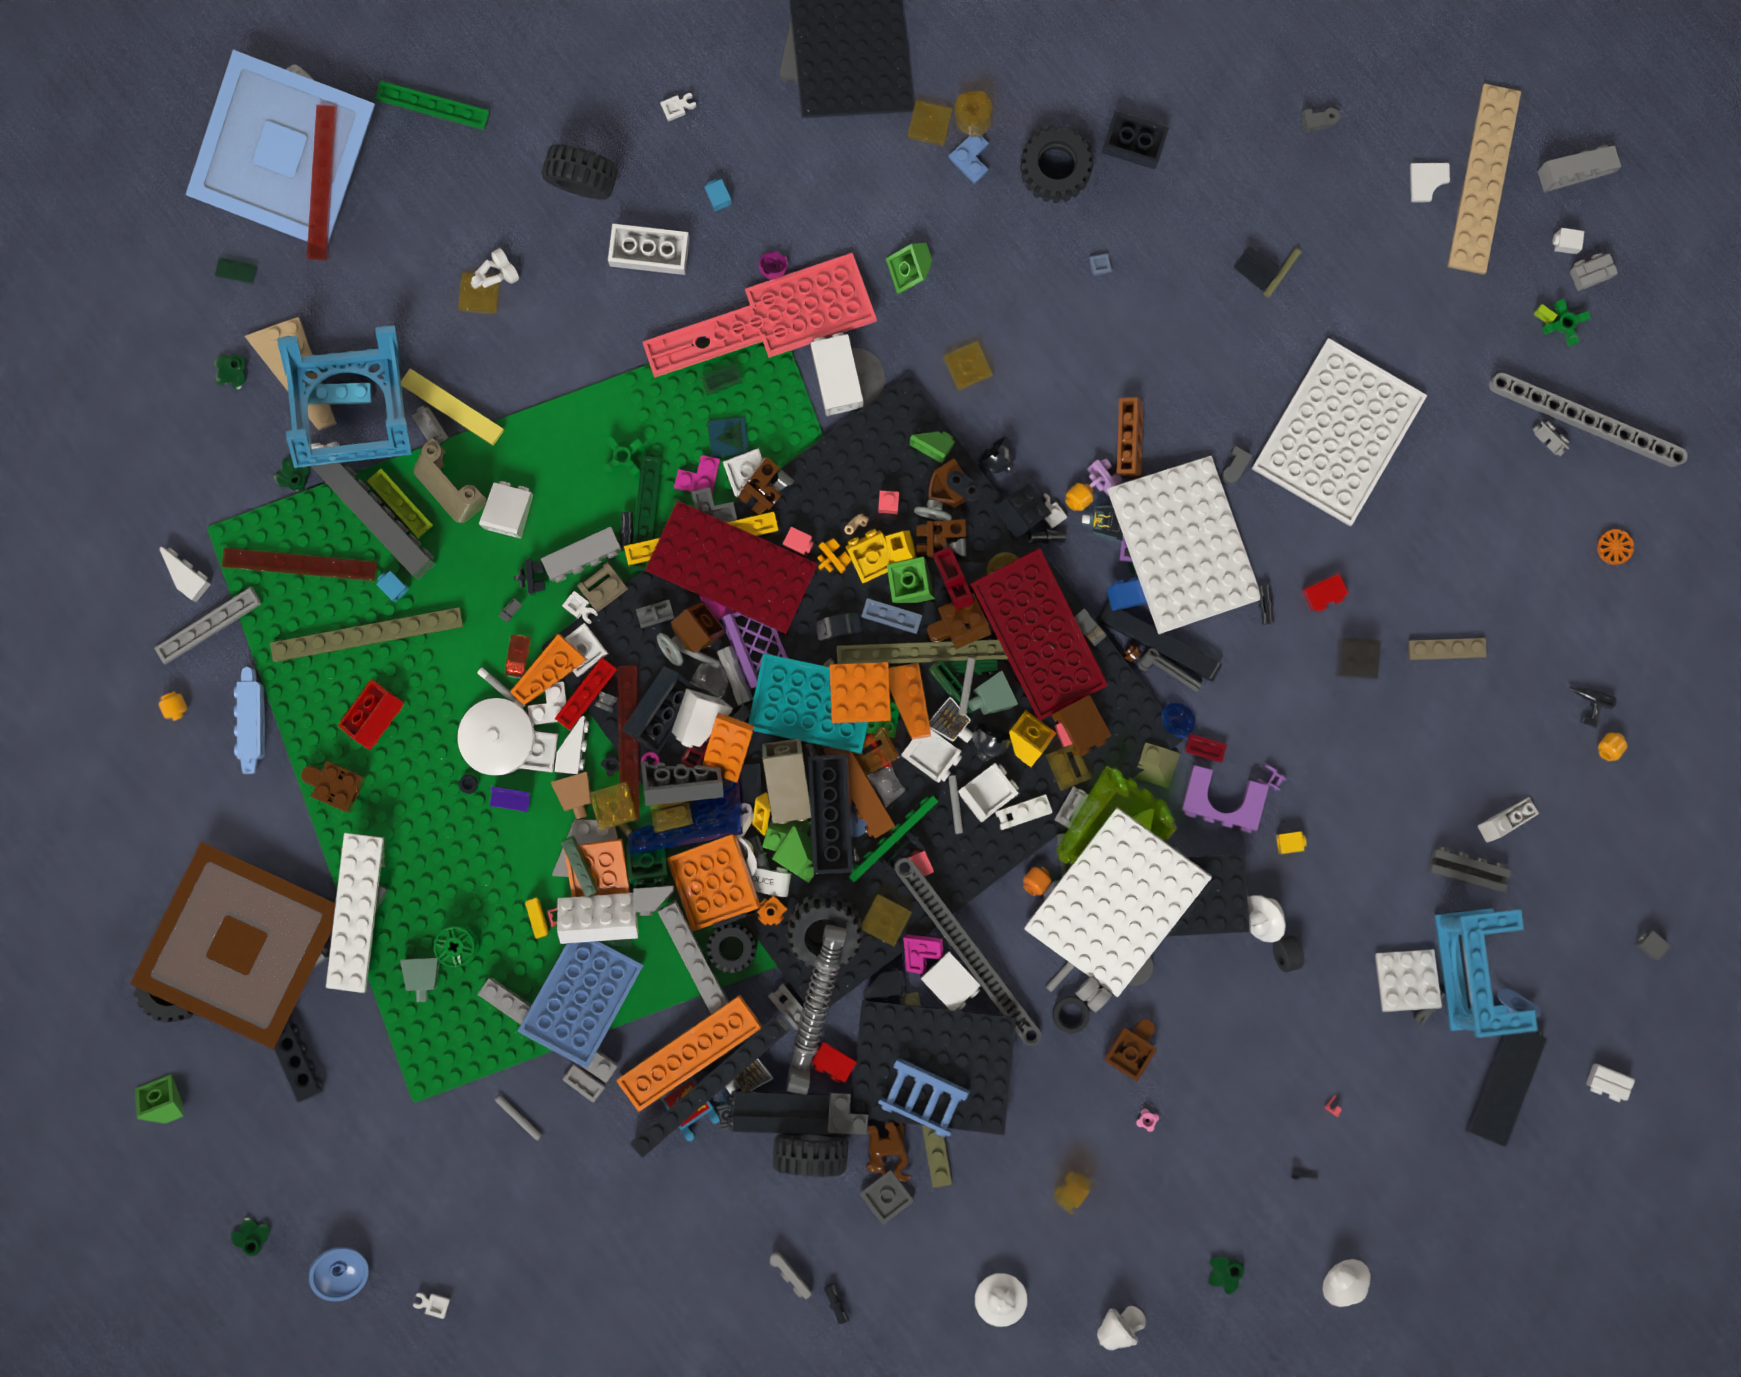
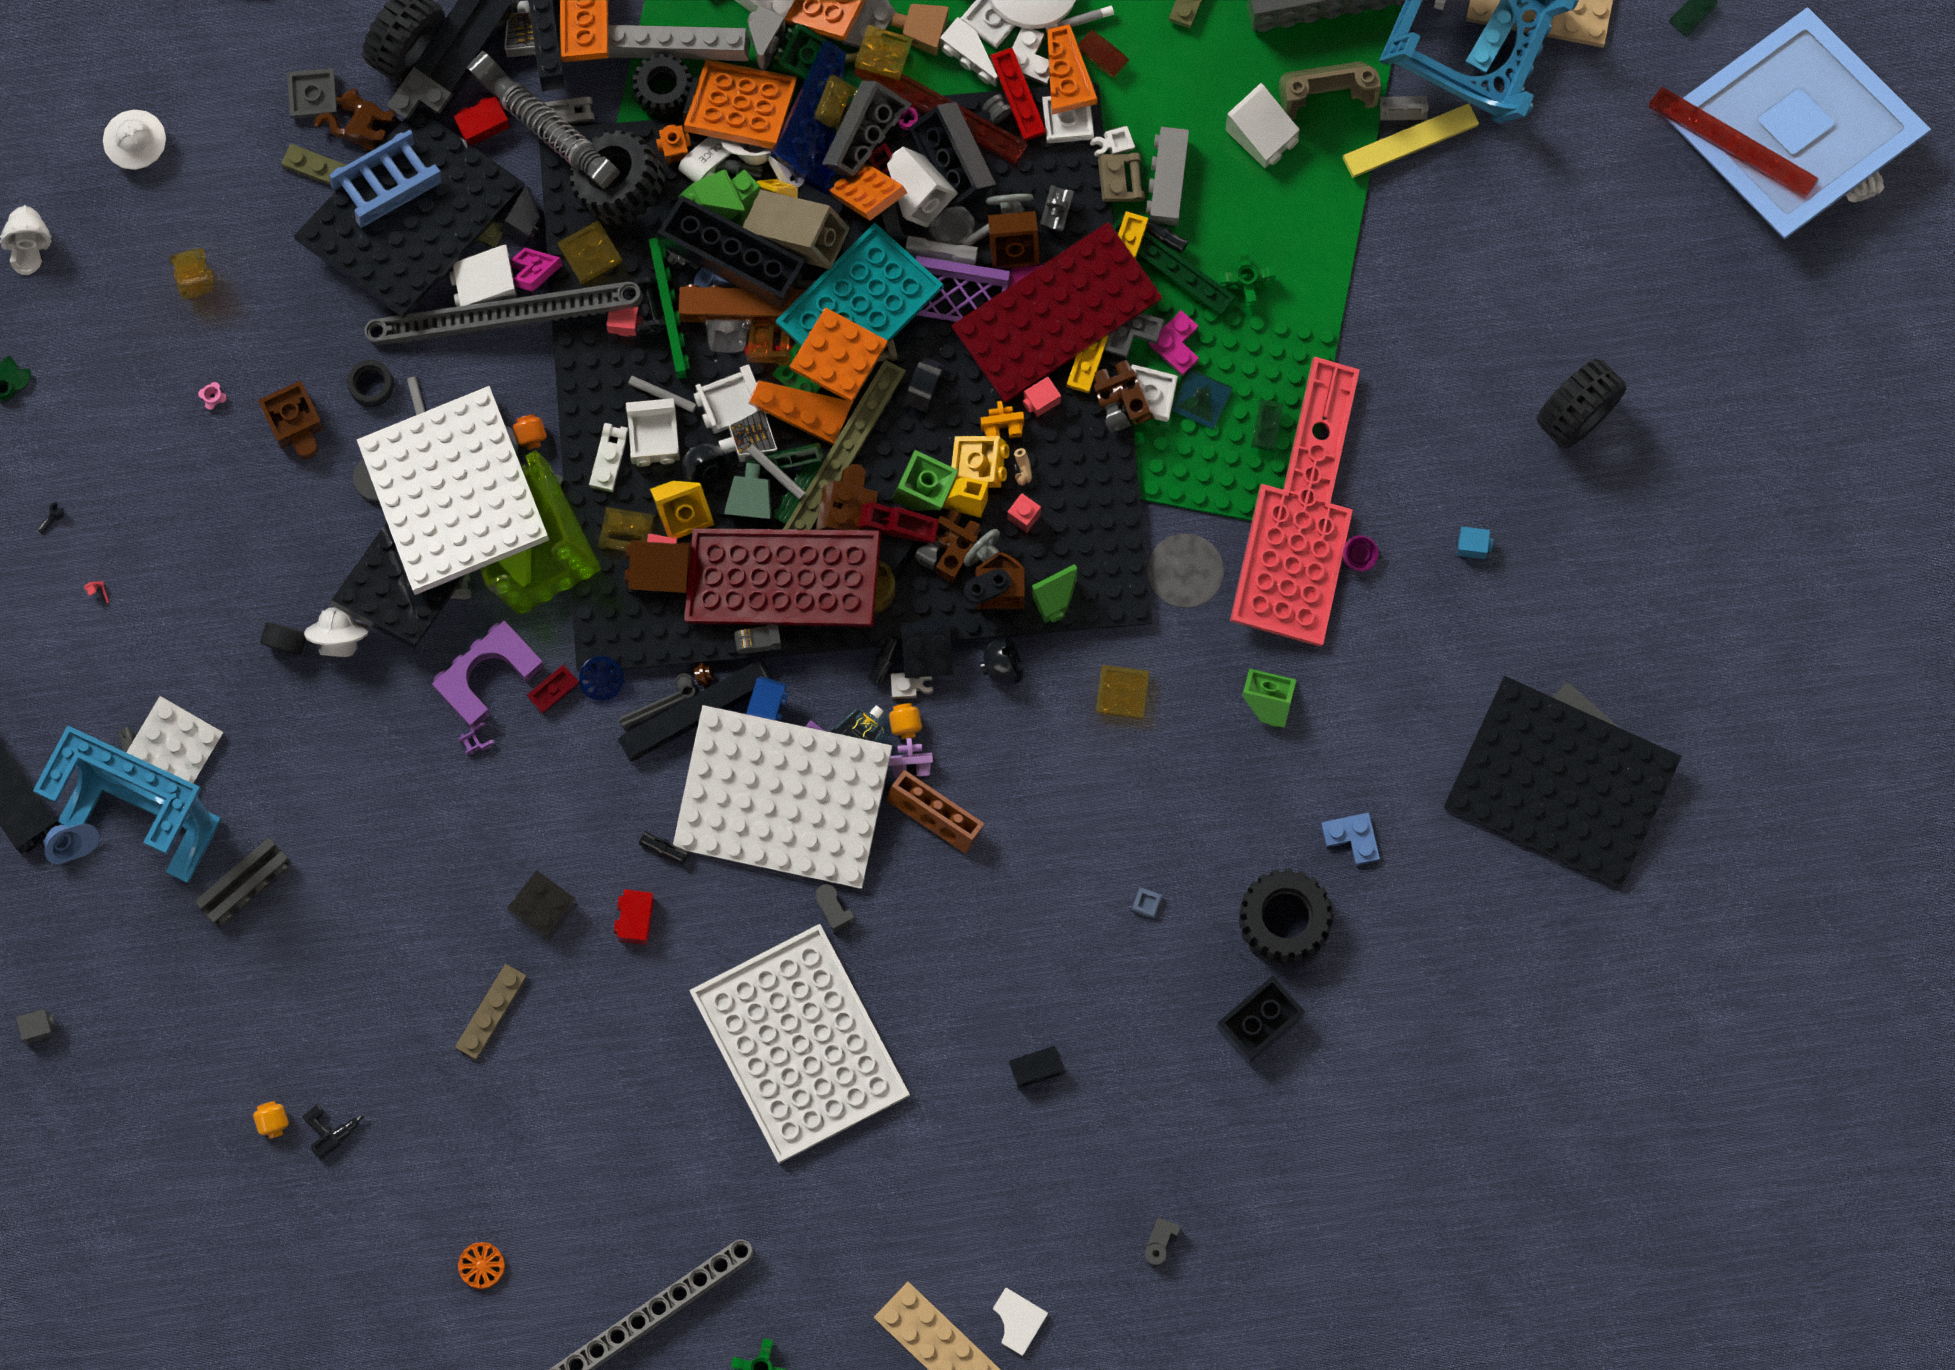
camera: 125 degrees right, 10 degrees down
(399, 503) = (1338, 29): lime plate -> none
(432, 105) = (1754, 307): green plate -> none
(479, 299) = (1518, 239): clear yellow plate -> none
(500, 262) = (1536, 278): white piece -> none
(510, 610) = (1155, 73): dark grey pin -> none
(533, 585) = (1177, 109): black hips -> none
(606, 764) = (930, 75): black plate -> none
(648, 249) = (1456, 434): white brick -> none
(675, 107) = (1600, 556): white plate -> none
(836, 374) = (1197, 545): white brick -> none
(891, 616) = (901, 446): sand blue plate -> none
(929, 123) = (1417, 814): clear yellow plate -> none
(973, 112) = (1411, 860): clear yellow brick -> none
(1071, 806) = (582, 507): light grey hinge -> none
(1093, 994) = (375, 416): light grey wheel -> none
(1158, 765) = (568, 630): olive slope -> none
(1282, 272) = (1014, 1094): olive bar -> none
(1291, 842) = (396, 715): yellow brick -> none
(1508, 820) = (267, 959): white slope -> none
(1545, 314) = (785, 1352): lime tile -> none
(1547, 432) = (634, 1276): light grey hinge -> none

